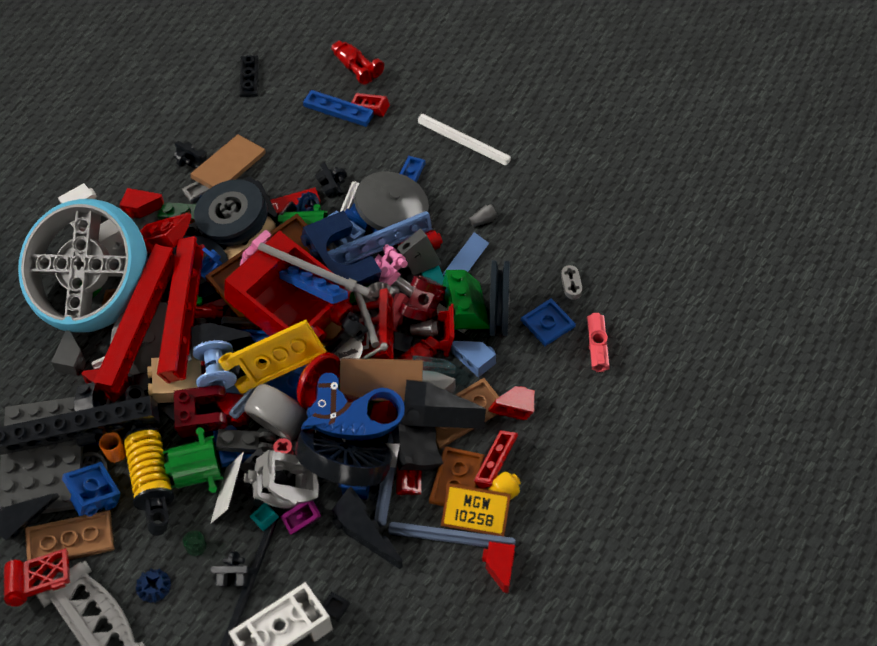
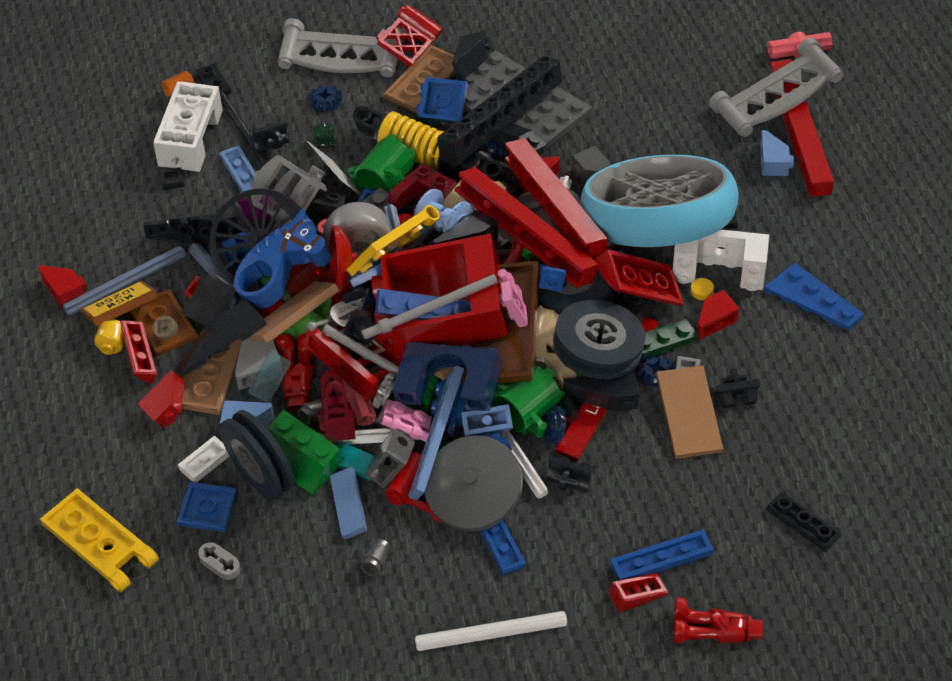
camera: 135 degrees right, 5 degrees down
(74, 170) = (813, 296): none -> blue wing
(281, 567) = (238, 167): none -> medium blue tile
(448, 329) = (279, 405): red piece -> none
(463, 459) = (165, 327): none -> dark tan tile
(523, 350) = (204, 459): none -> white plate
(598, 351) = (128, 508): coral piece -> none
(633, 359) = (89, 530): none -> yellow hinge

